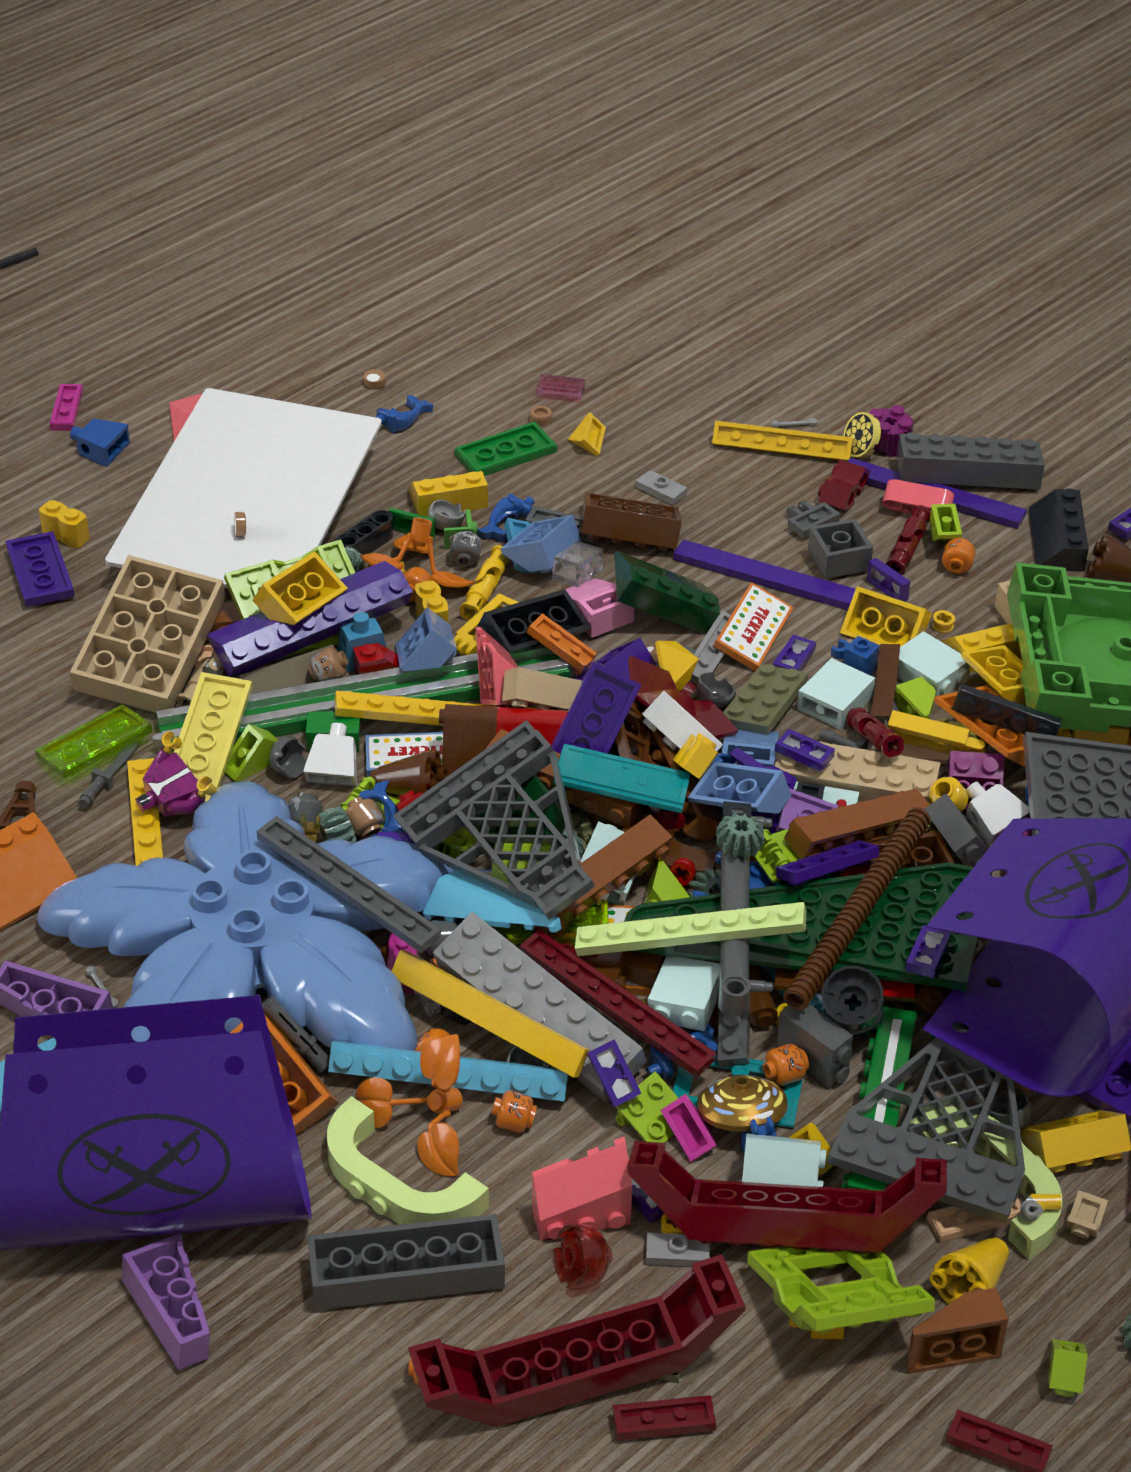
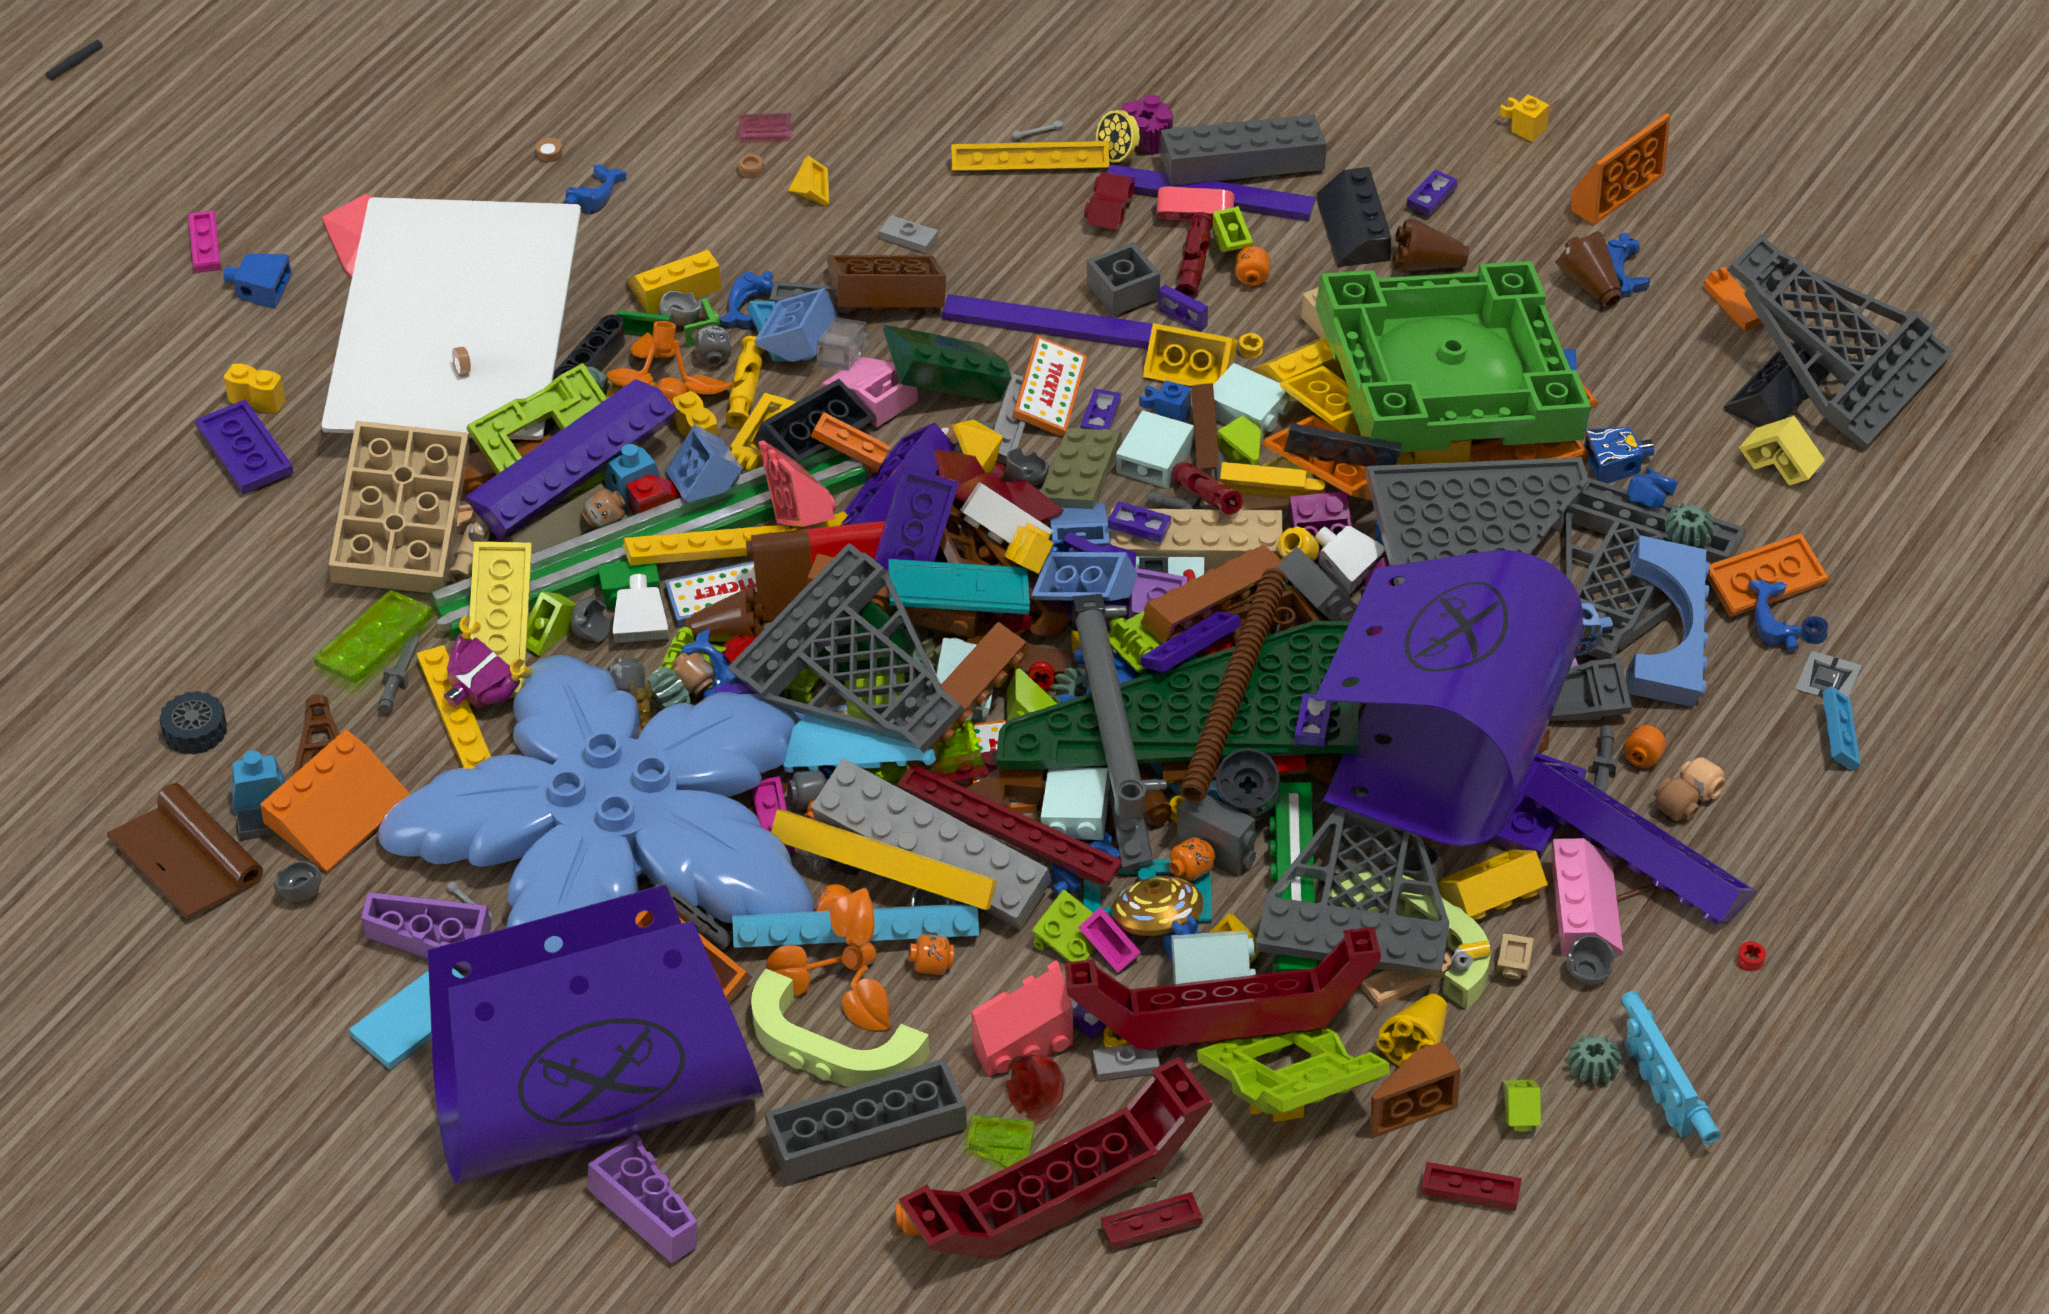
camera: 10 degrees left, 5 degrees up
(299, 590) = (557, 432): yellow slope -> none
(349, 884) = (707, 750): dark grey plate -> none
(506, 449) = (722, 215): green tile -> none
(534, 1304) = (1001, 1139): none -> clear neon green wing
(538, 689) = (849, 503): tan brick -> none
(613, 1073) = (1026, 898): dark purple piece -> none
(691, 929) = (1070, 738): yellowish green plate -> none
(740, 835) = (1100, 631): sand green gear -> none
(807, 516) = (1080, 246): dark grey hinge -> none

